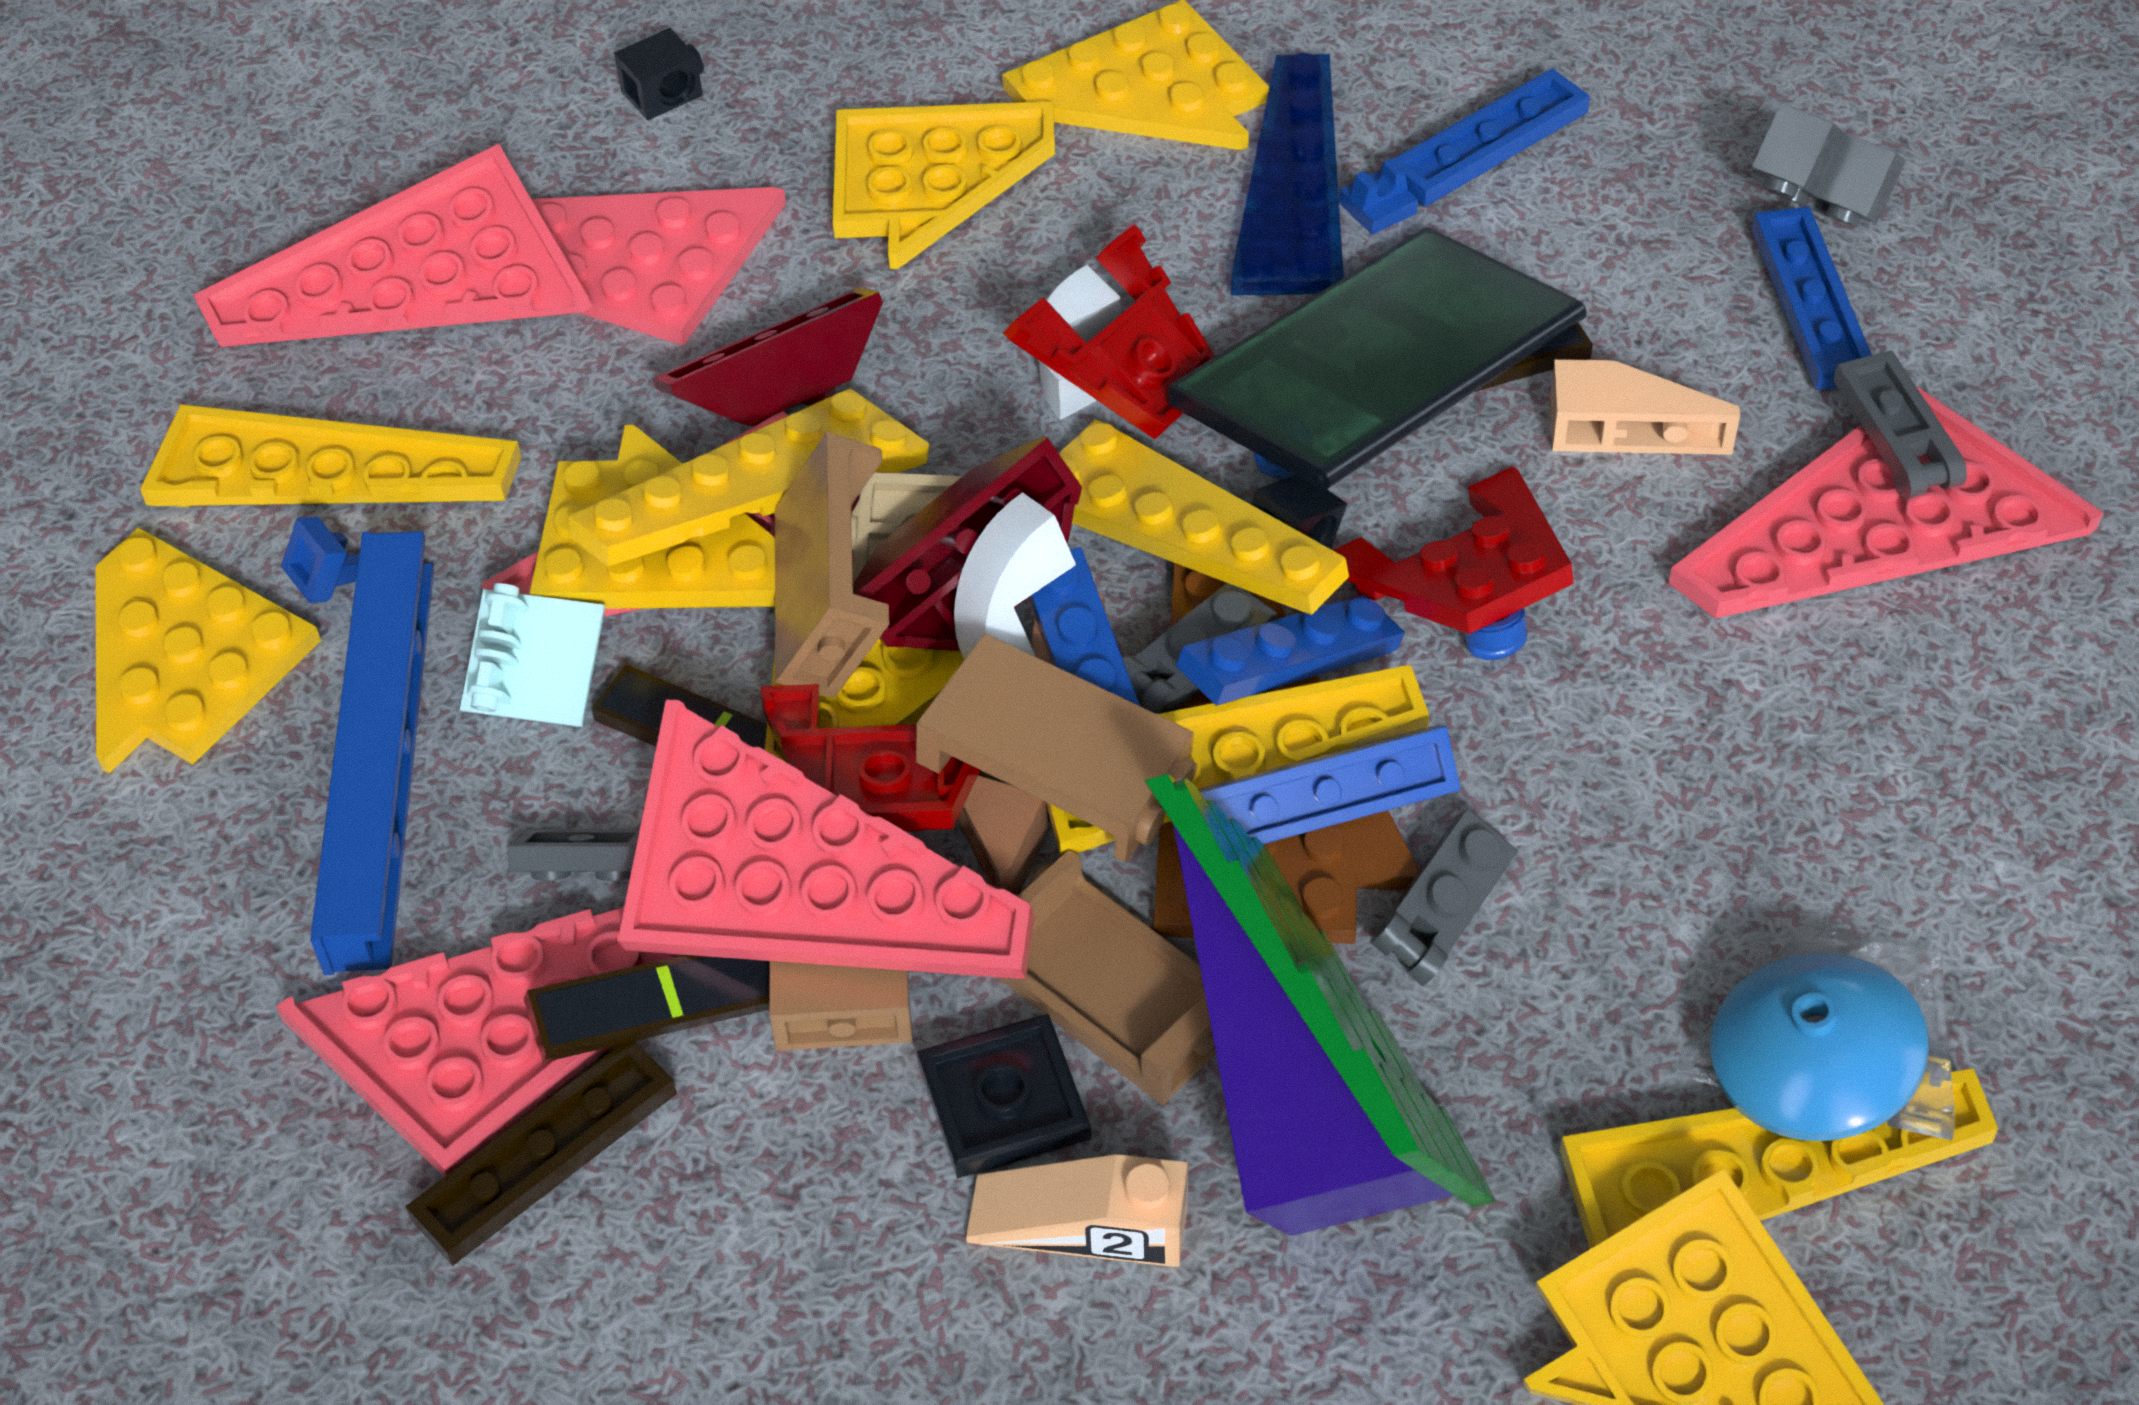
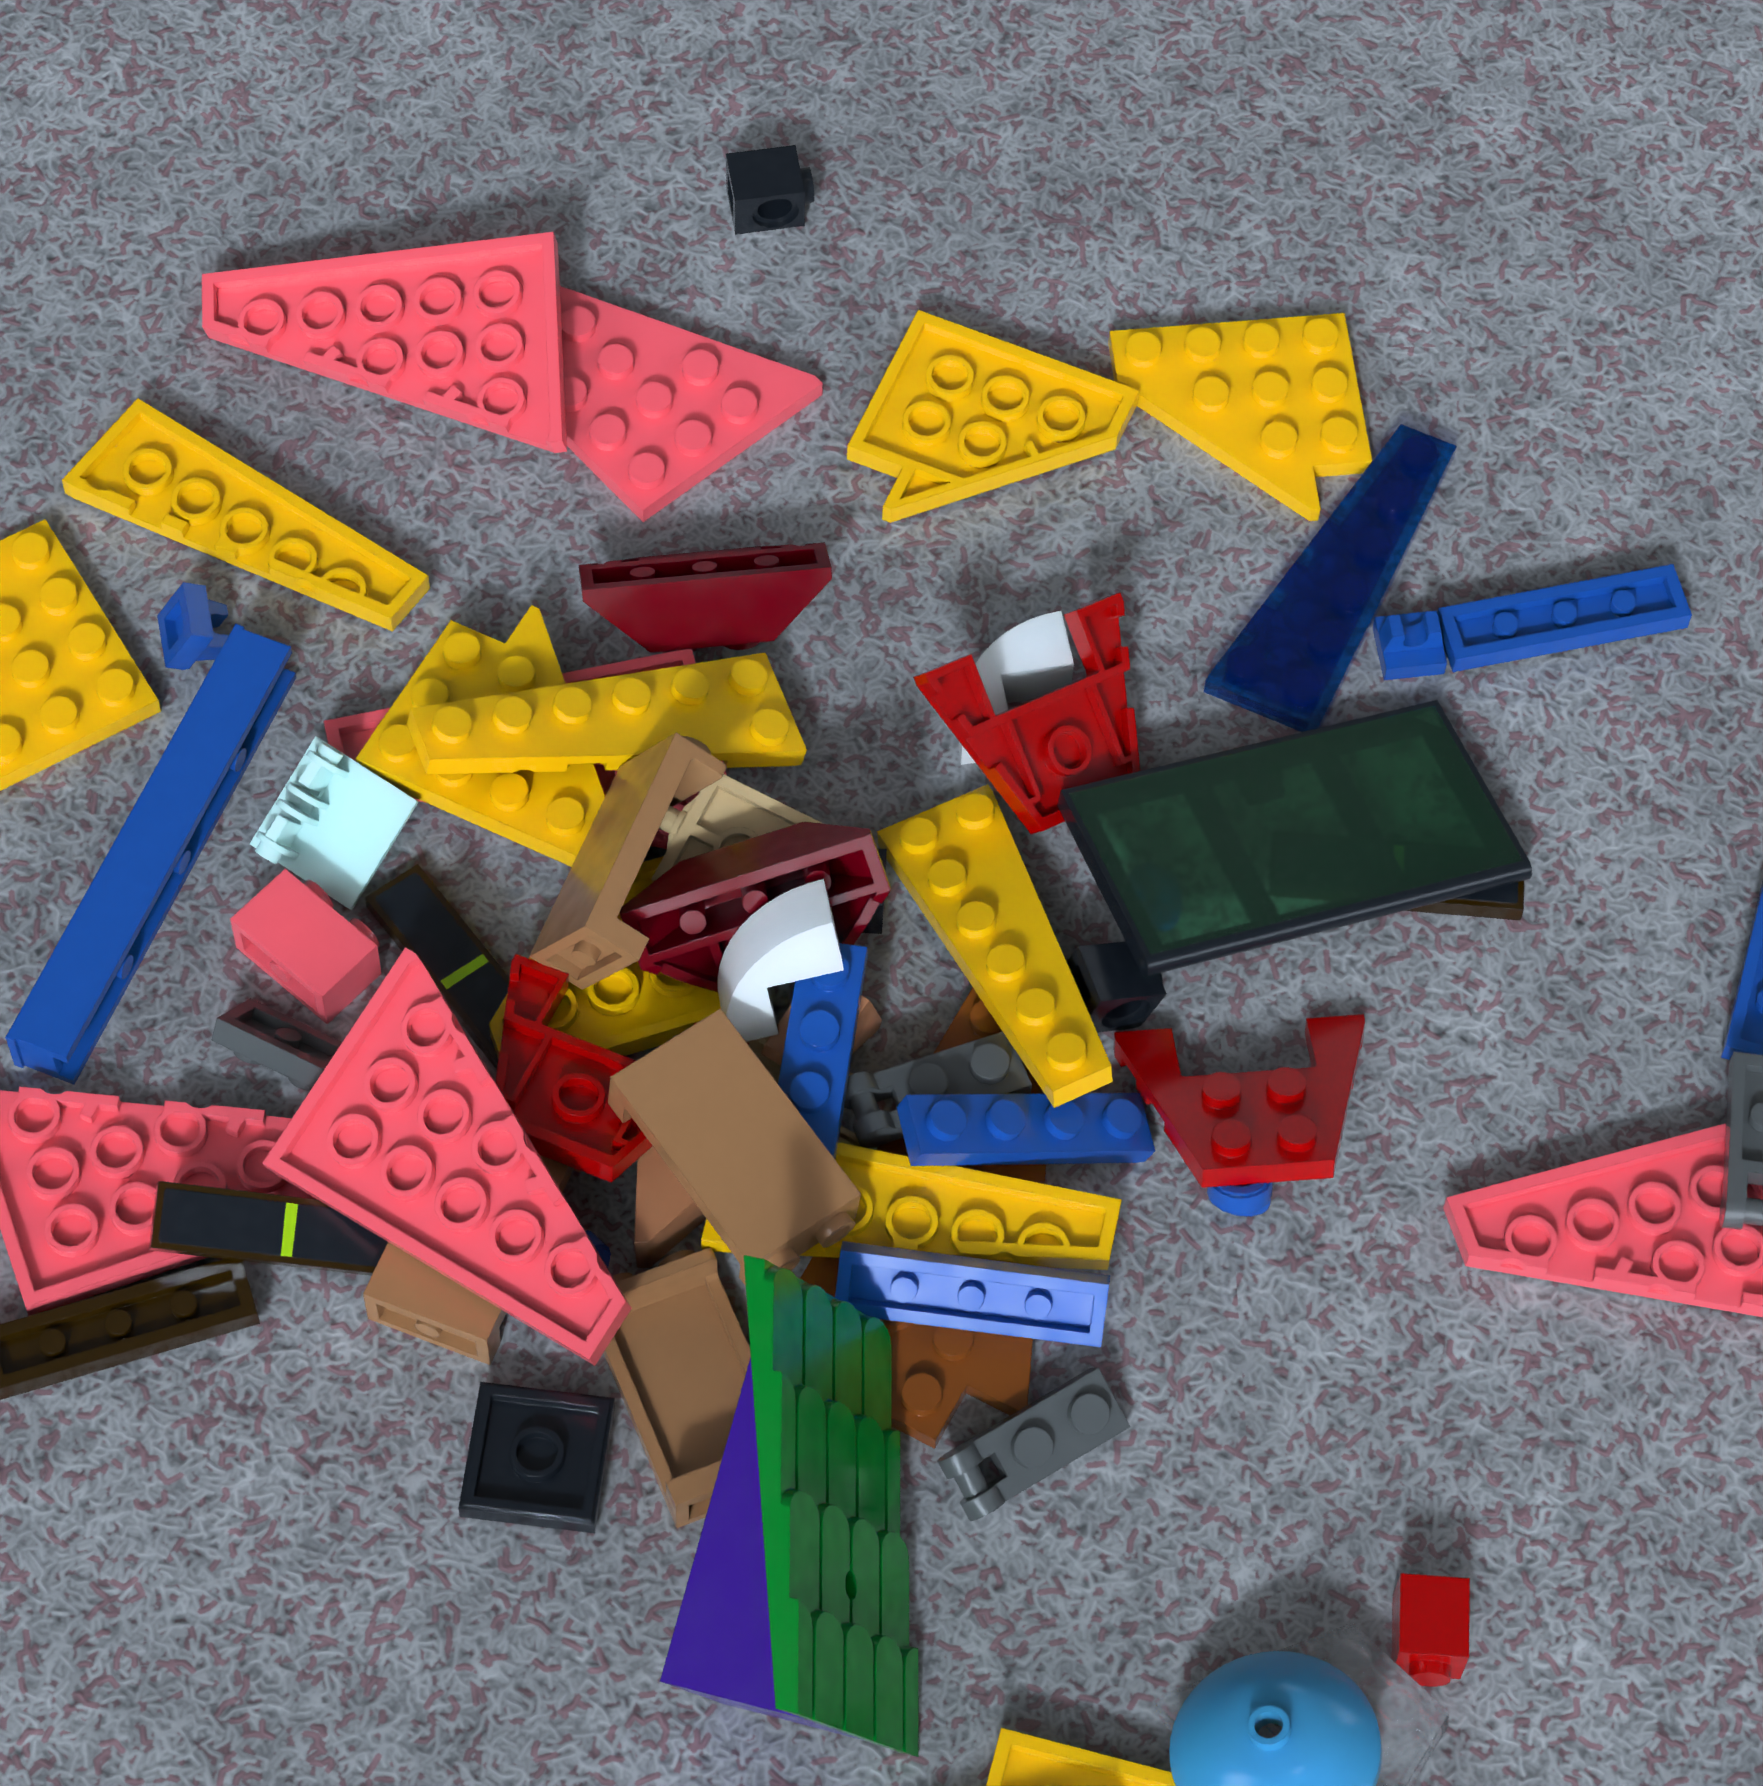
camera: 20 degrees right, 10 degrees up
(558, 763) = (307, 944): none -> coral brick
(1086, 1208) = (551, 1600): light nougat slope -> none
(1629, 410) = (1507, 1001): light nougat slope -> none
(1876, 893) = (1431, 1627): none -> red brick

